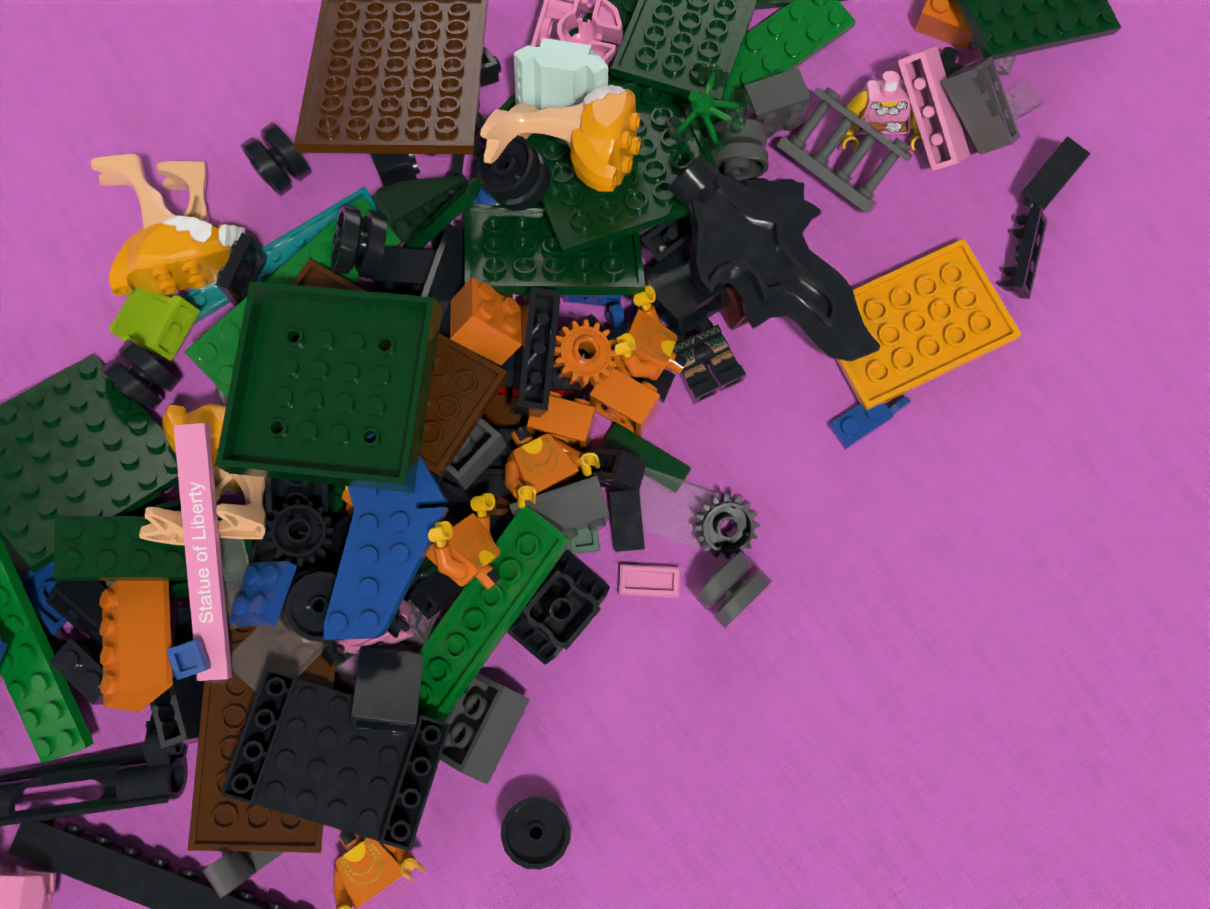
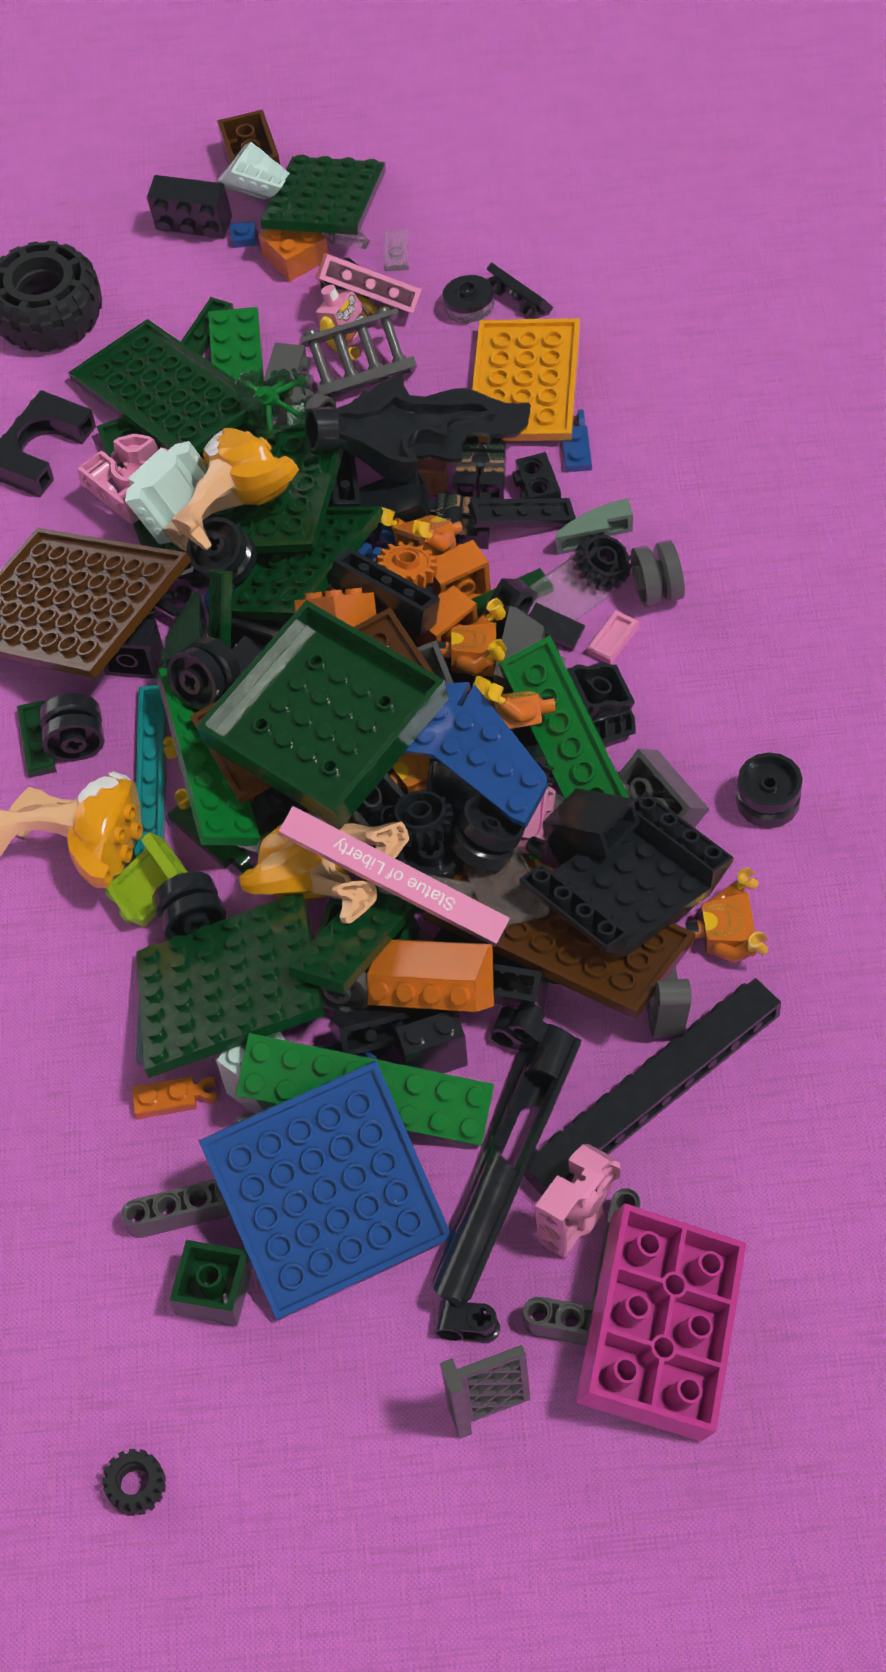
camera: 55 degrees left, 20 degrees down
(188, 659) = (476, 928): blue plate -> none
(243, 266) = (154, 787): black plate -> none
(262, 593) = (456, 855): blue plate -> none
(284, 116) = (36, 760): none -> dark green tile
(737, 417) = (521, 512): none -> black plate
(768, 494) = (607, 519): none -> sand green slope
(775, 348) = (481, 467): none -> black hips
(794, 413) = (536, 477): none -> black brick
(982, 105) = (388, 256): dark grey wedge -> none
(987, 211) = (468, 298): none -> black piece
(1054, 174) = (469, 243): black slope -> none

